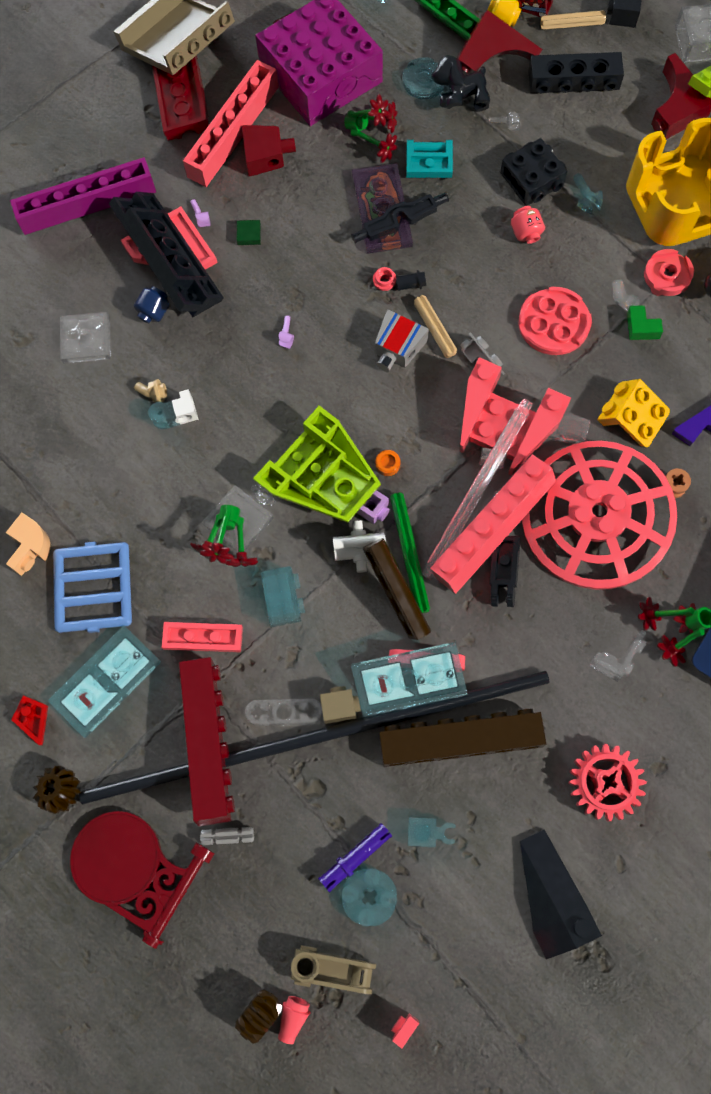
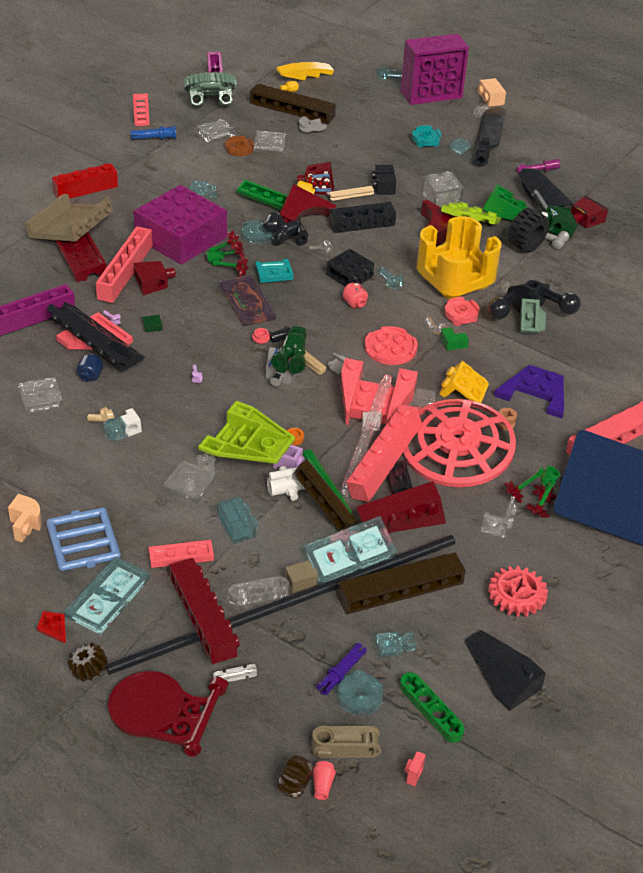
camera: 20 degrees left, 30 degrees down
(226, 520) = (185, 482): plant -> none
(388, 222) = (256, 303): black piece -> none
(415, 321) = (292, 346): none -> dark green piece
(447, 938) = (429, 708): none -> green beam
(491, 625) = (407, 509): none -> dark red wedge

